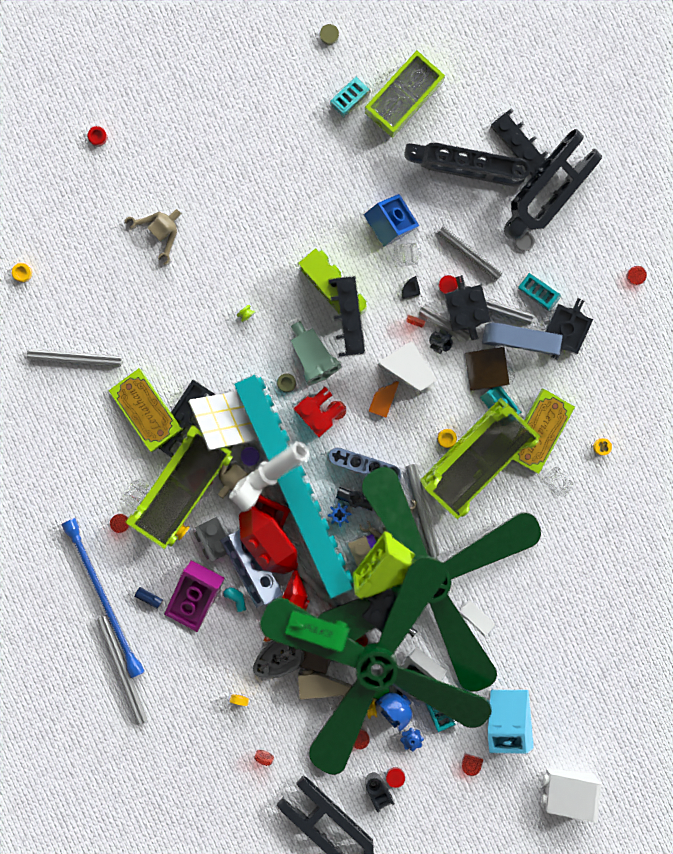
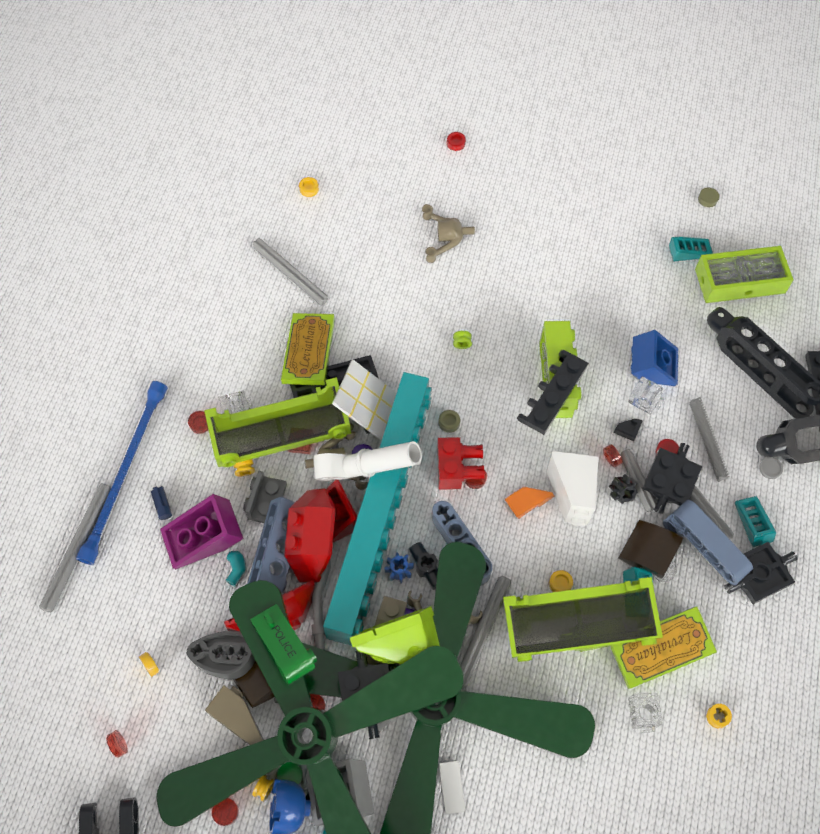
camera: 40 degrees right, 25 degrees down
(313, 355) = (492, 419): sand green piece -> none

